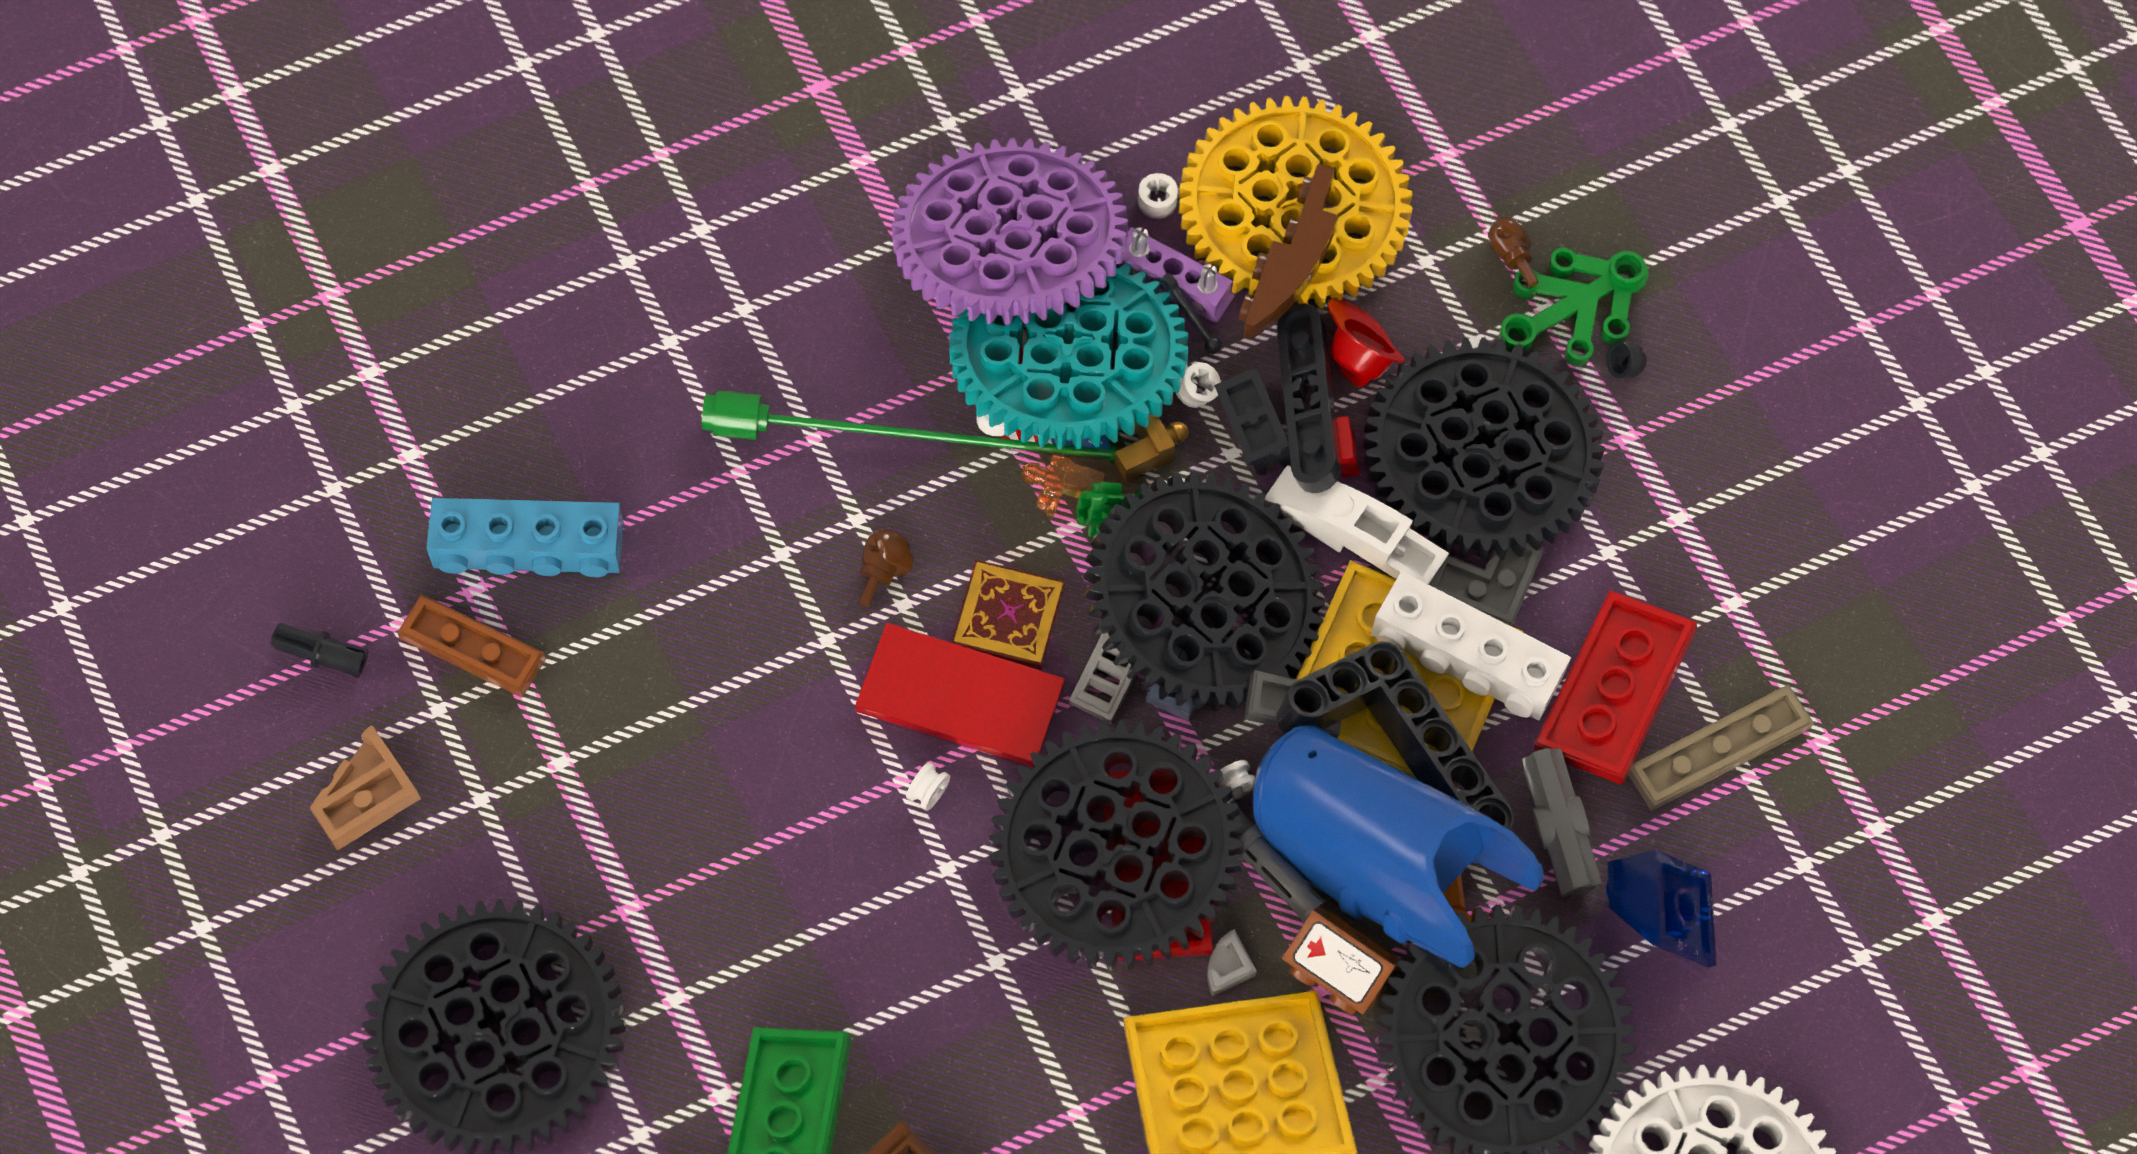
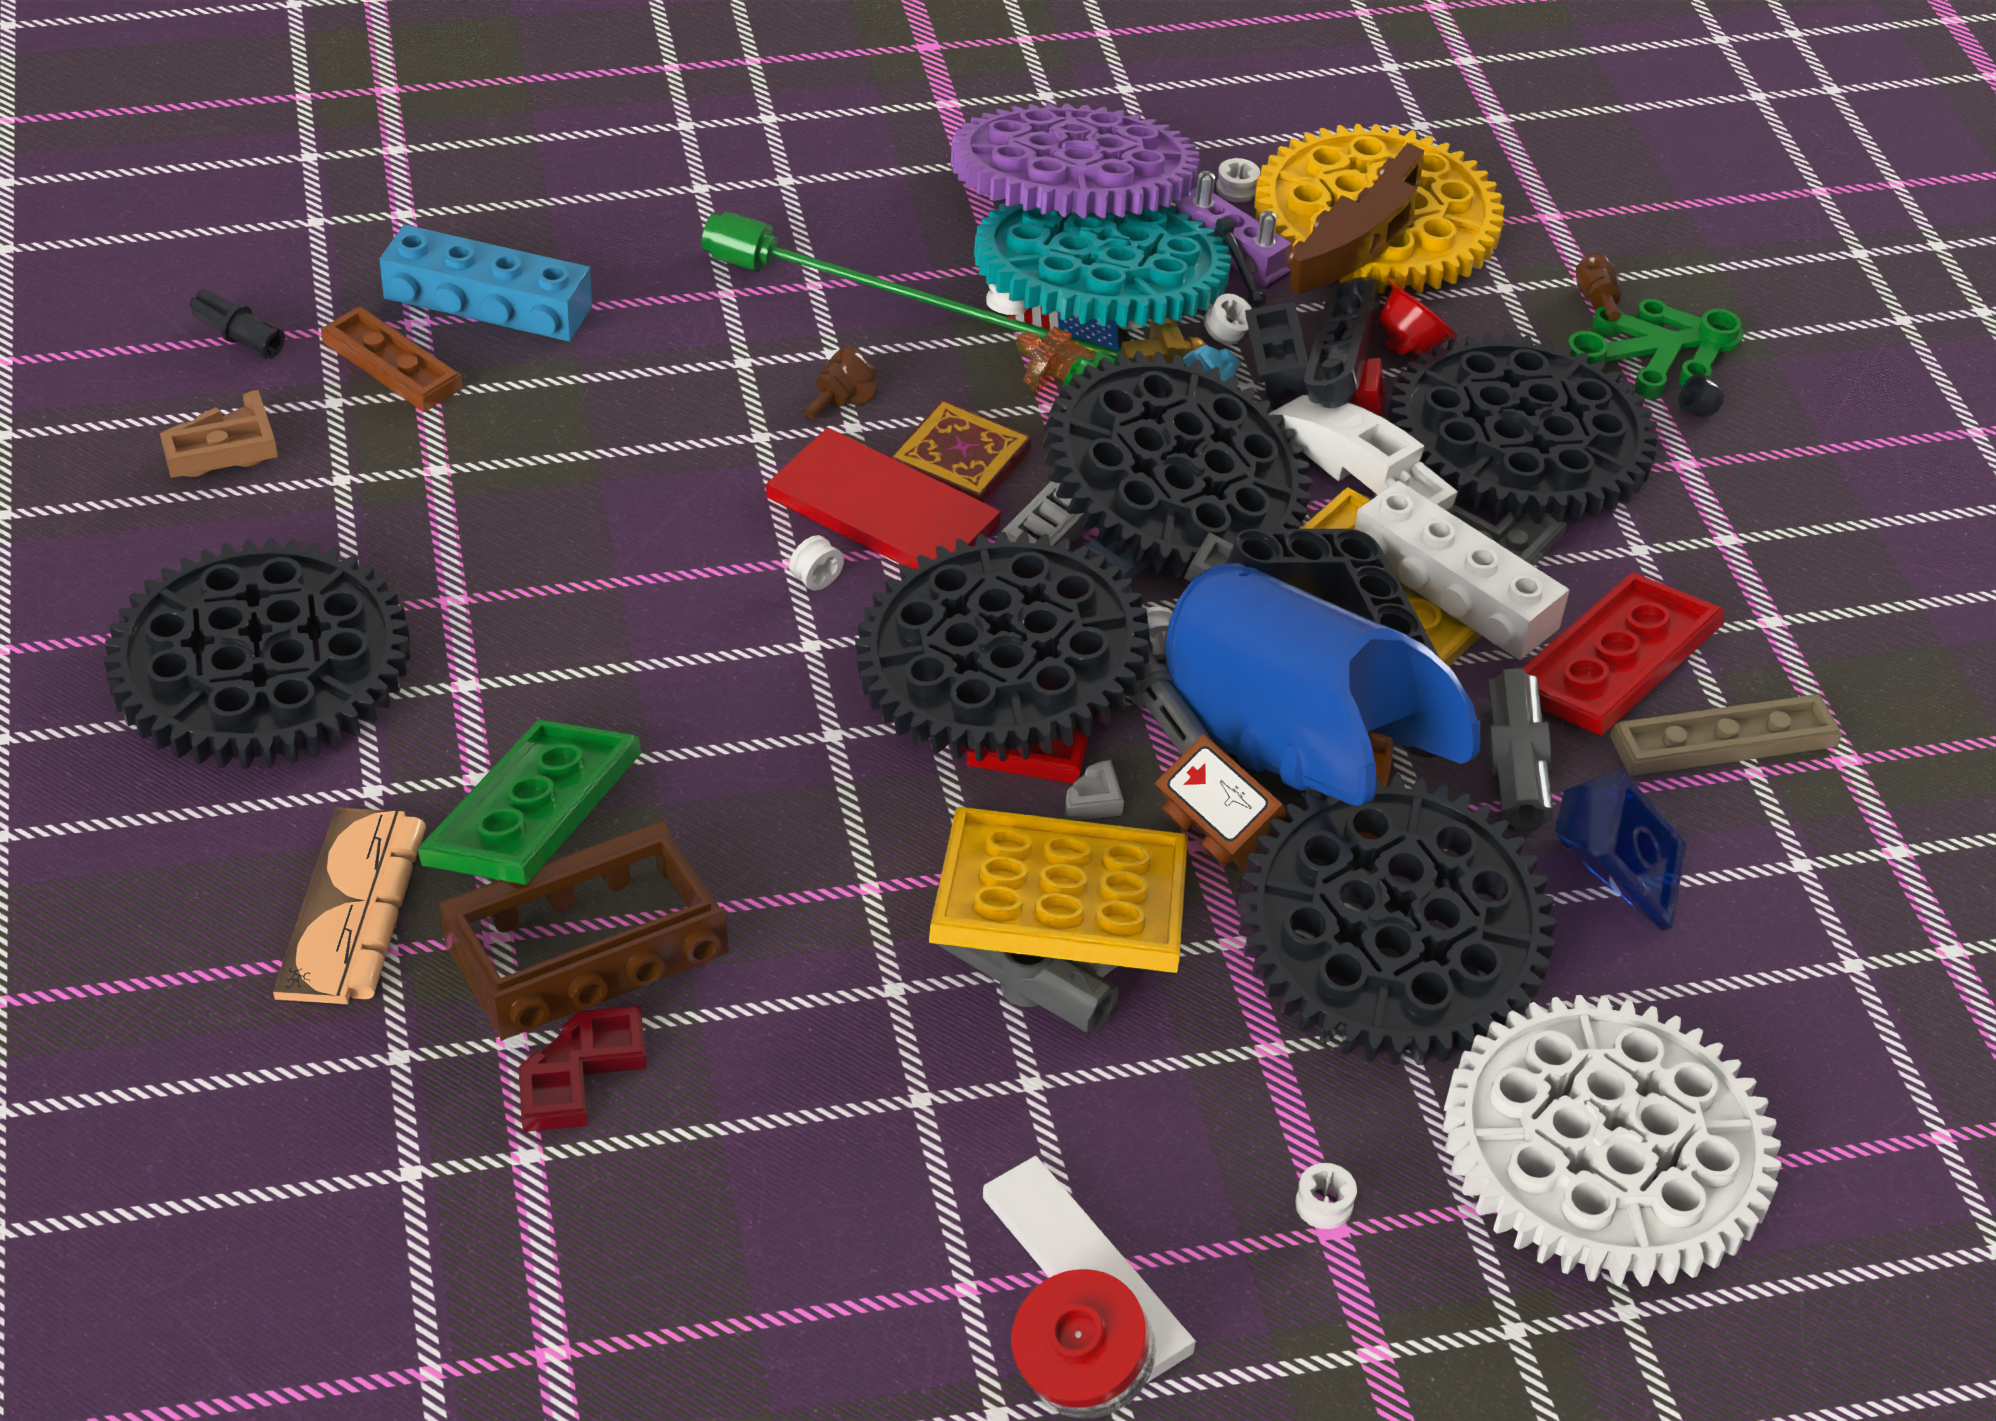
camera: 15 degrees right, 20 degrees down
(1199, 450) = (1213, 357): none -> medium azure tile

